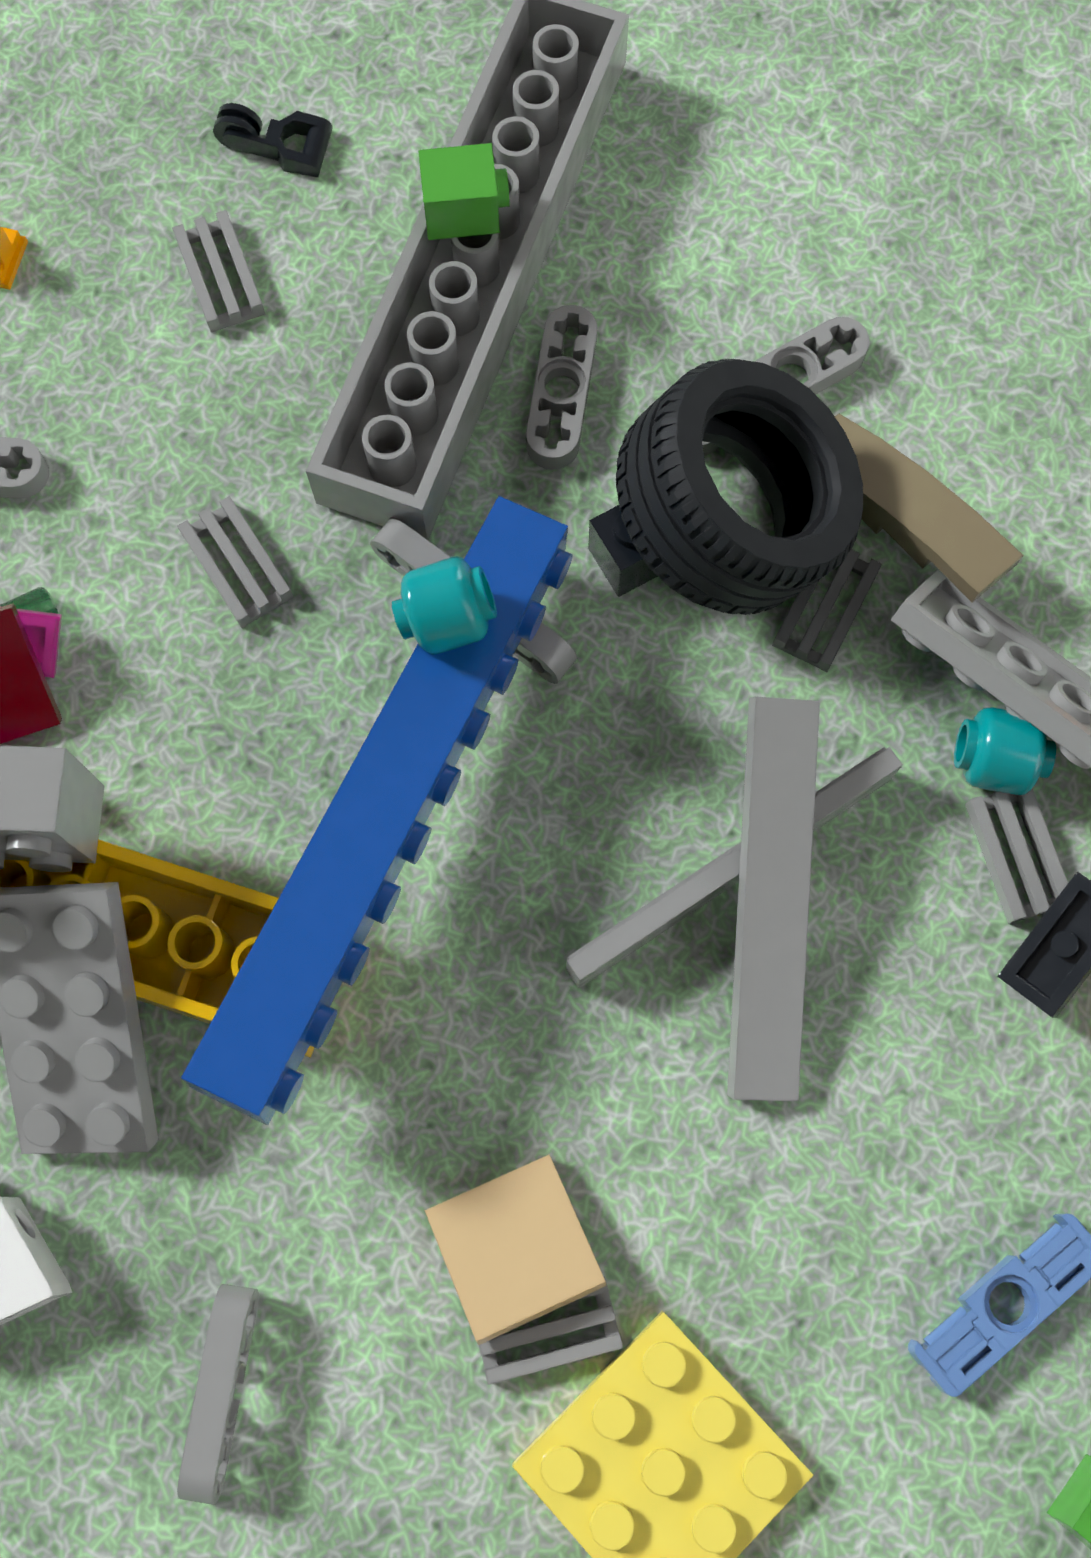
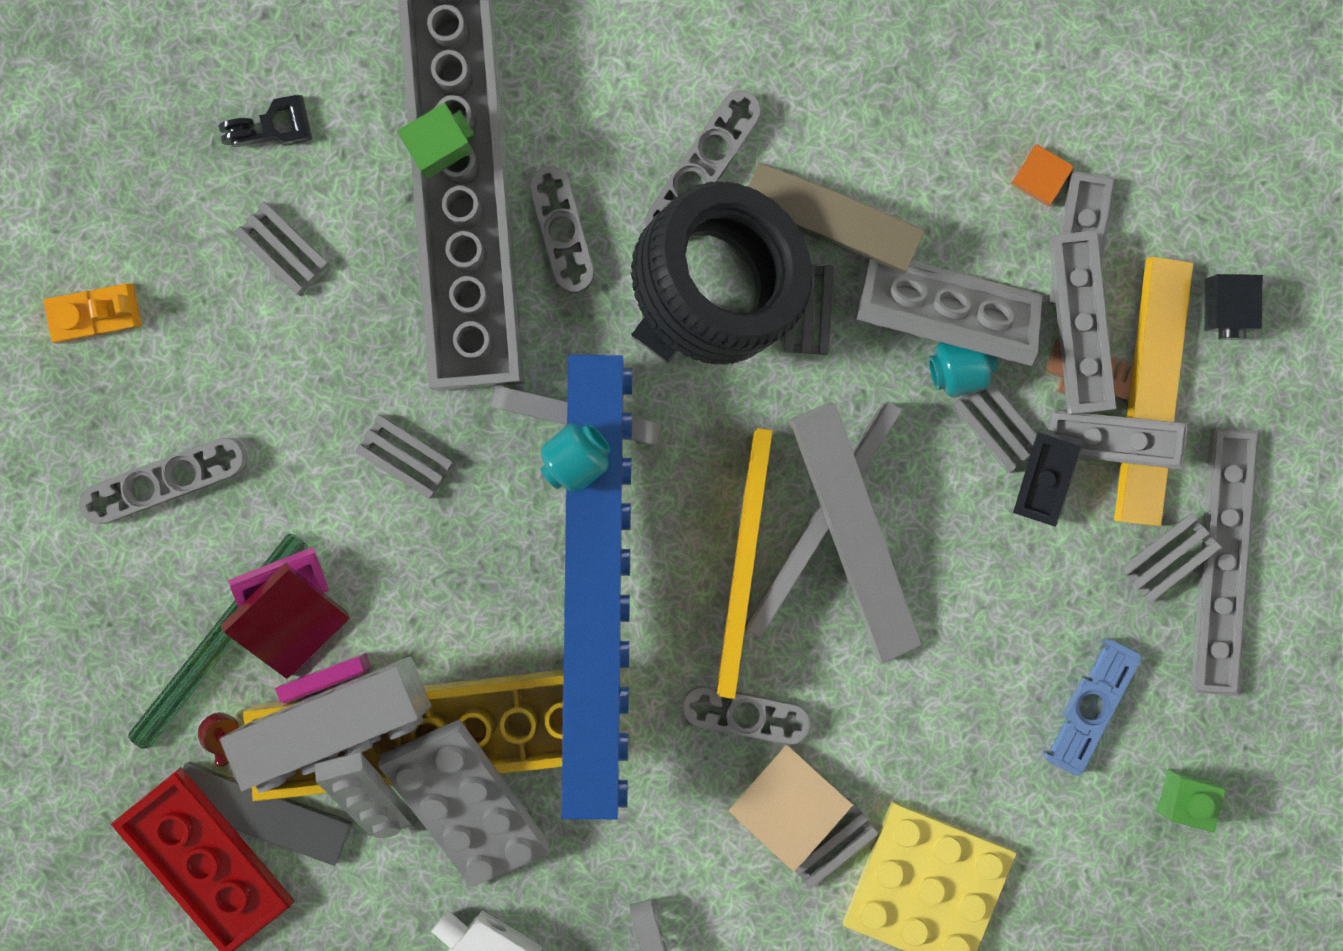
camera: 30 degrees left, 15 degrees up
(463, 1071) = (776, 732): none -> light grey beam
(599, 879) = (744, 563): none -> yellow tile

